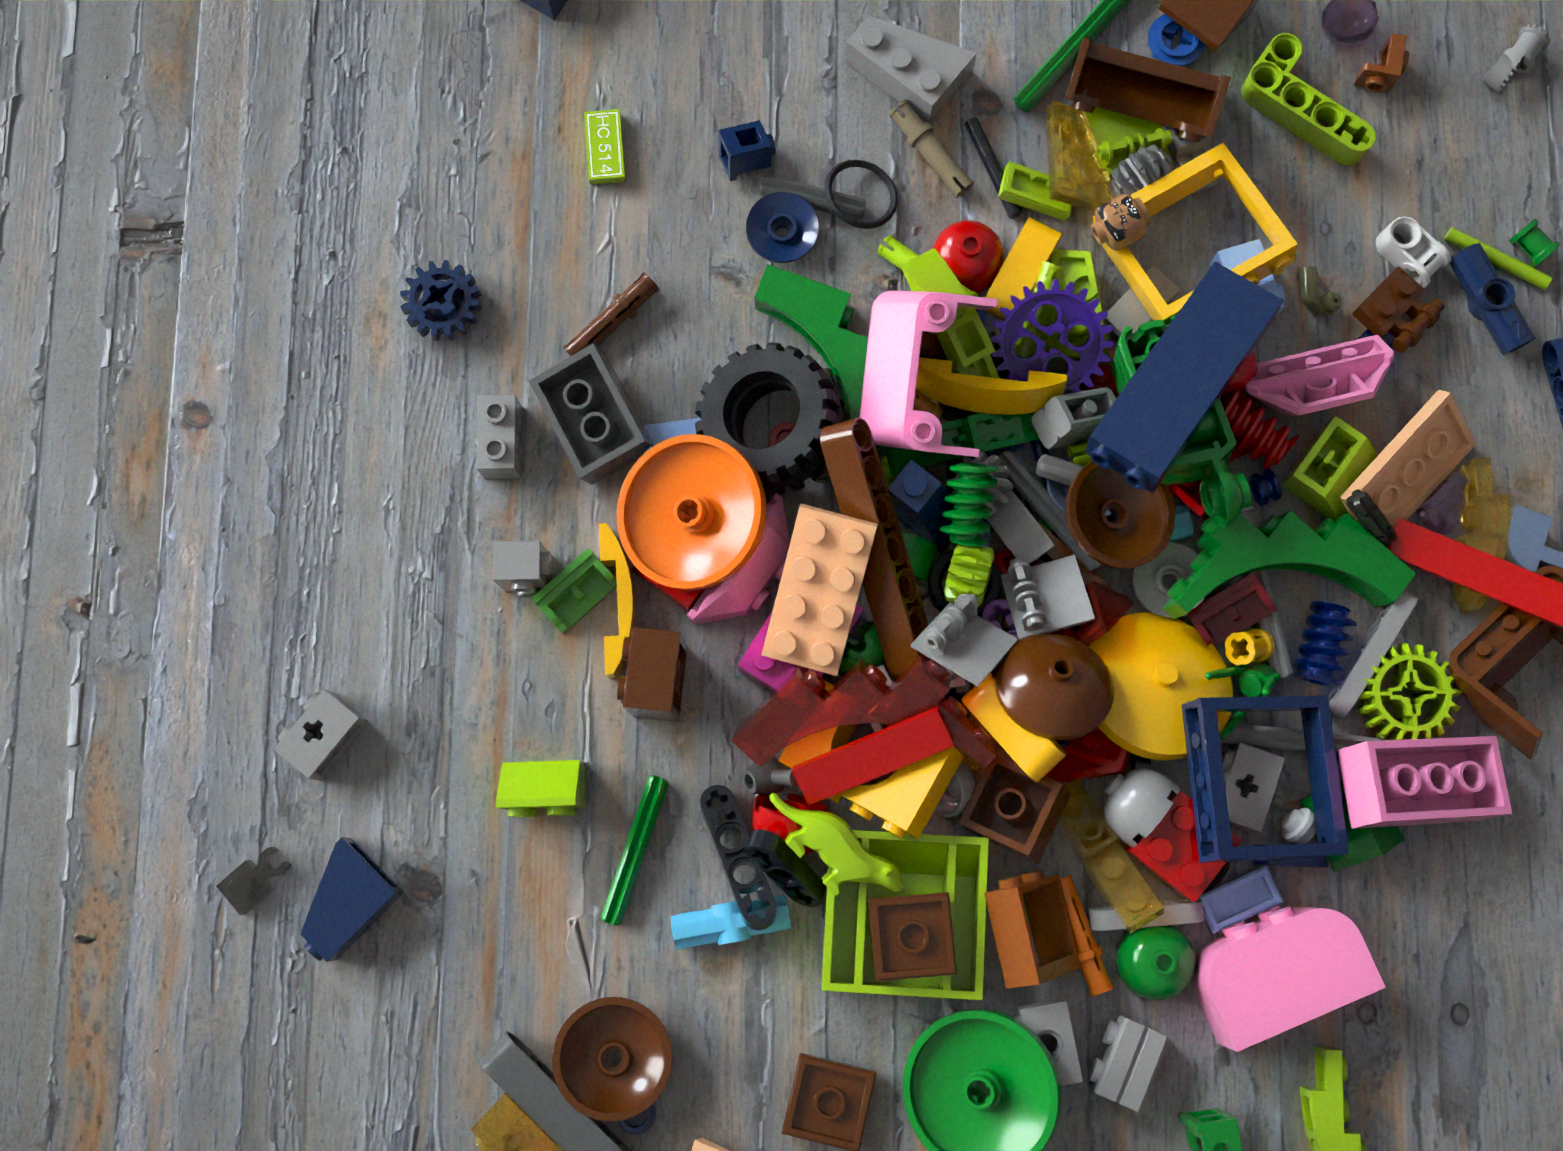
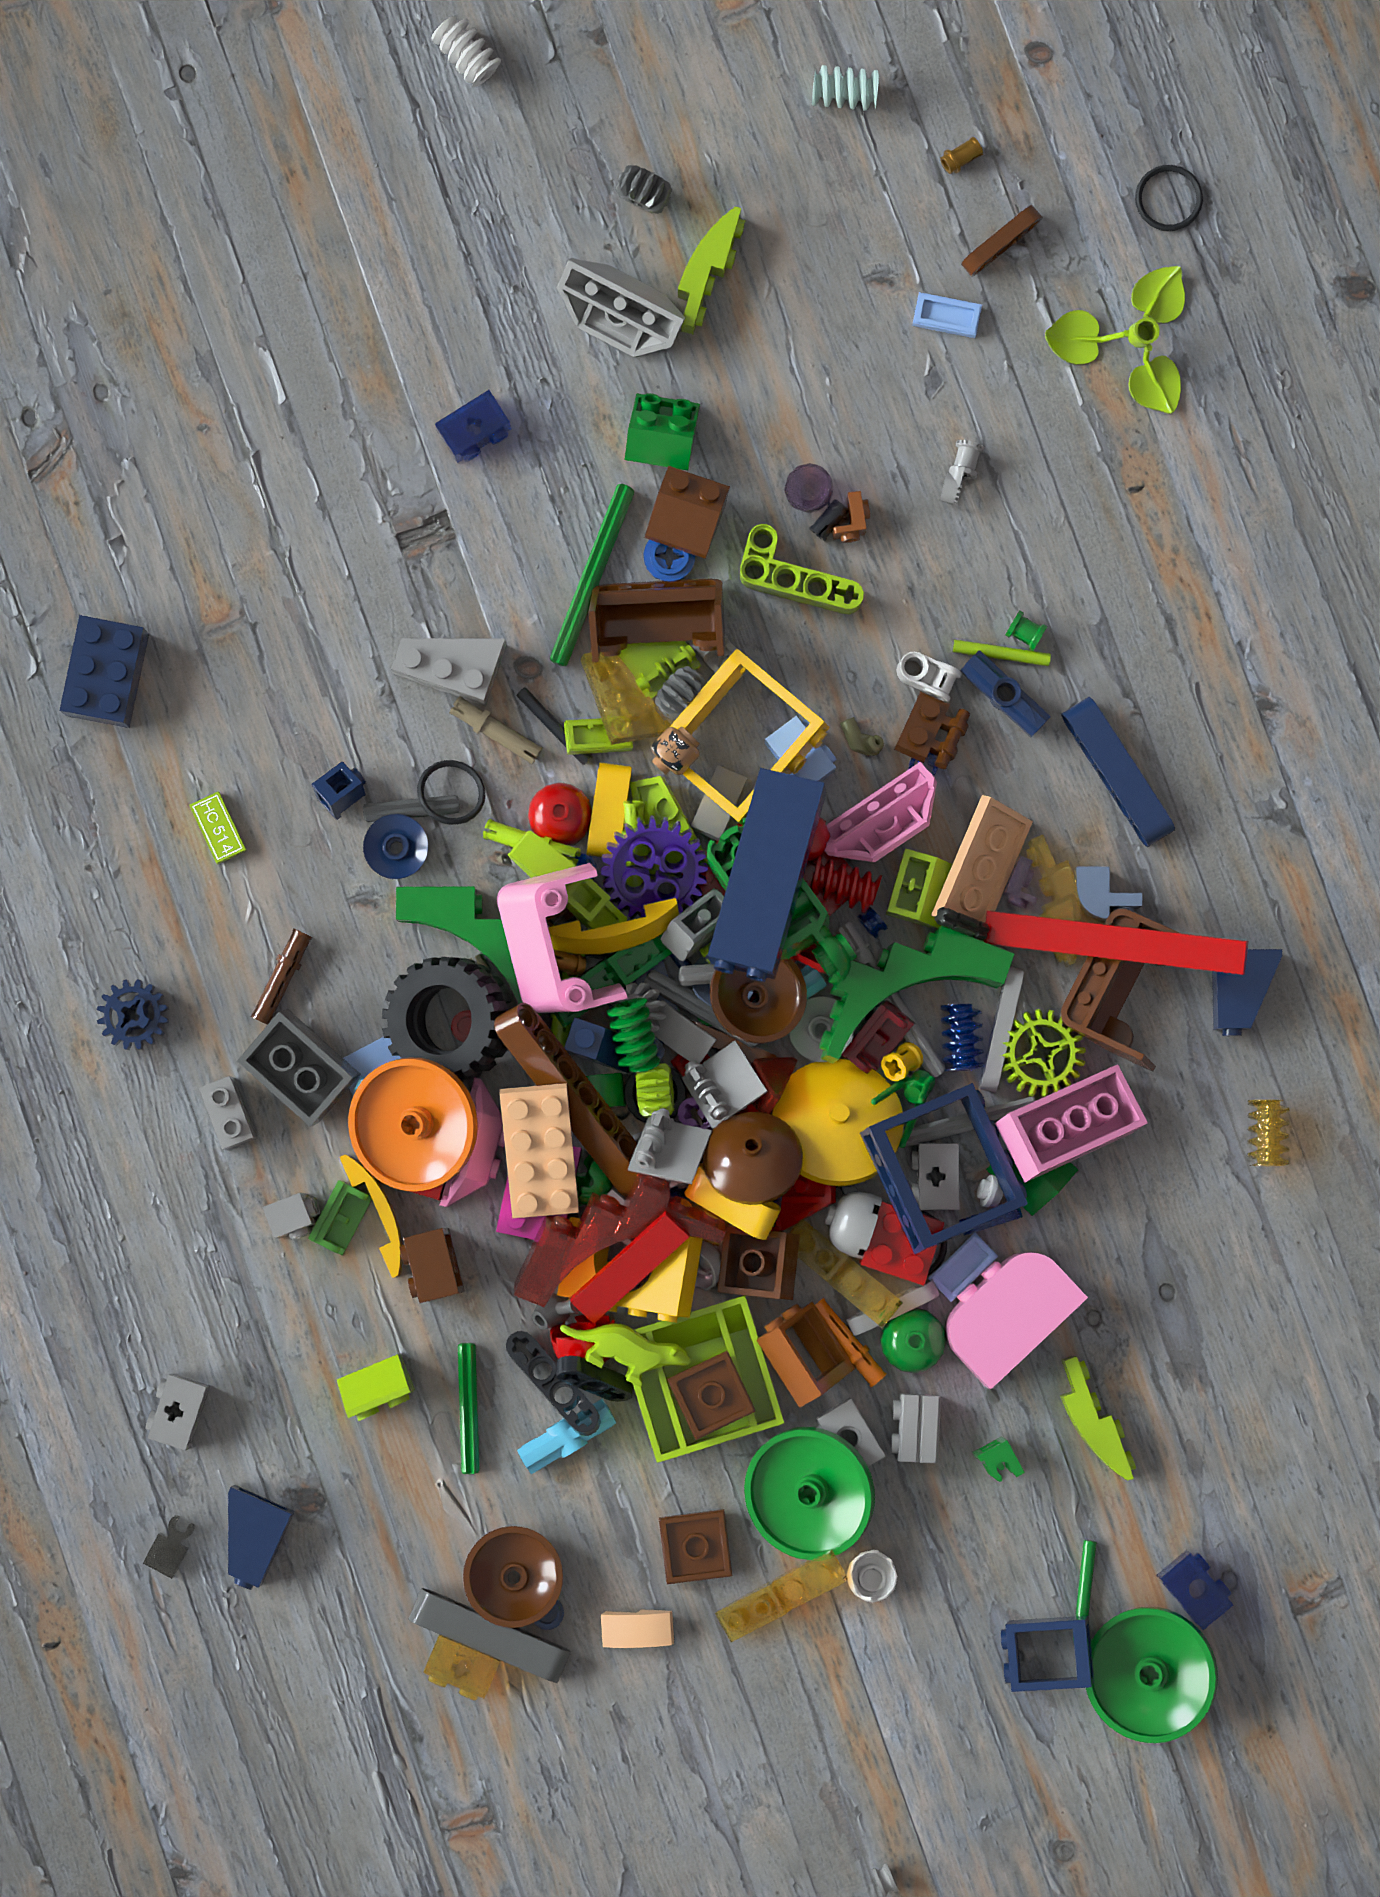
camera: 25 degrees left, 5 degrees up
(1368, 52) = (829, 519): none -> black pin

